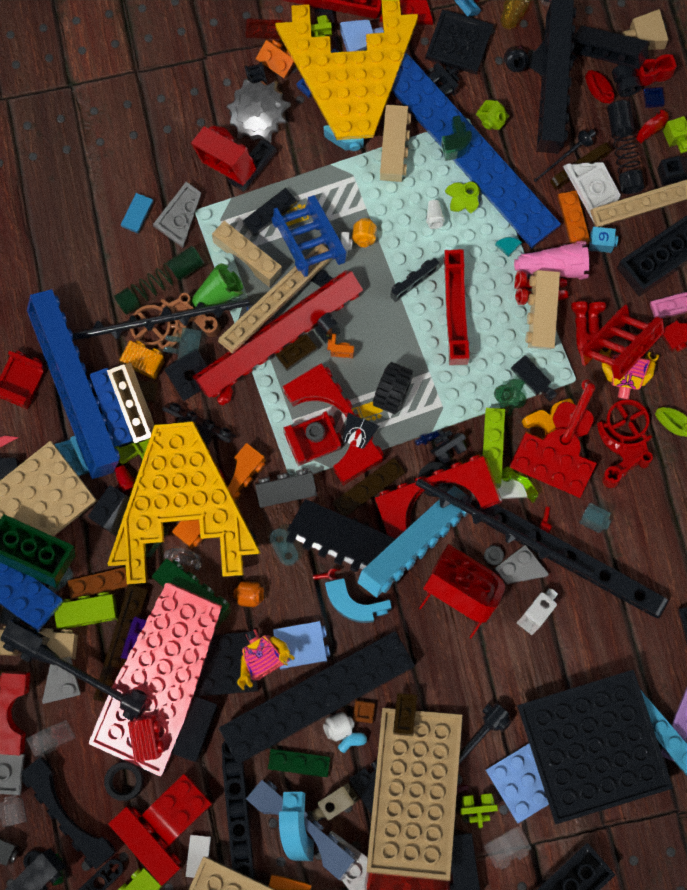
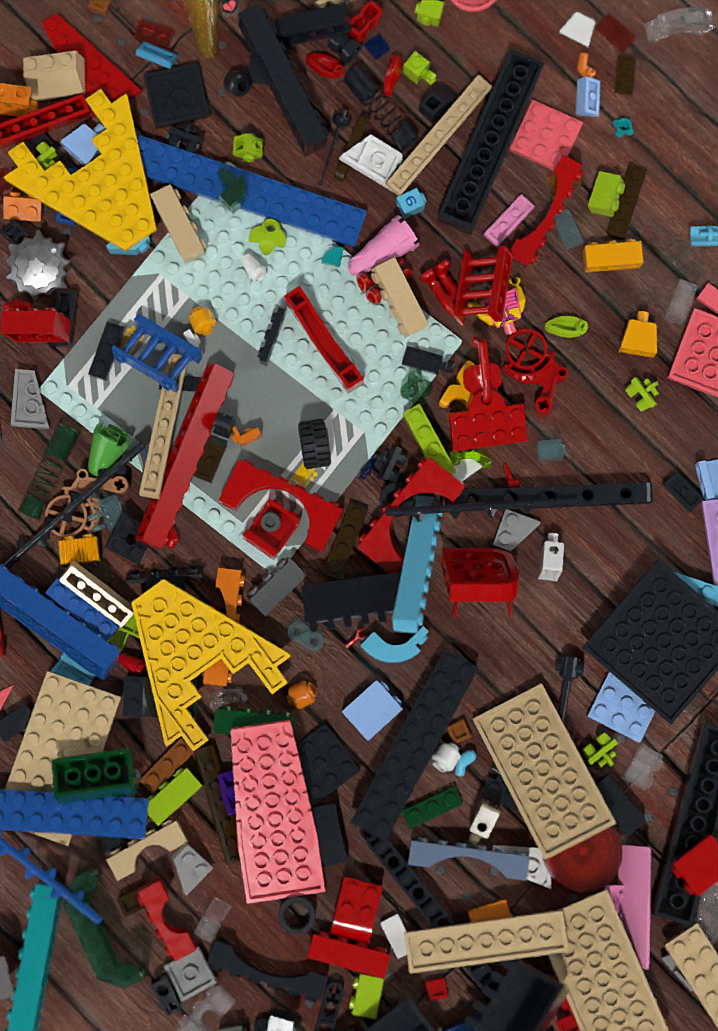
camera: 40 degrees left, 5 degrees up
(33, 646) = (148, 852): black bar -> none
(145, 738) = (294, 868): red brick -> none
(258, 261) = (104, 399): tan arch -> none
(262, 657) = (348, 740): torso -> none
(292, 828) = (464, 866): medium azure arch -> none
(358, 431) = (308, 498): black sticker -> none
(405, 714) = (495, 712): dark brown plate -> none
(493, 555) = (485, 534): dark grey tile -> none
(573, 217) = (374, 198): orange plate -> none

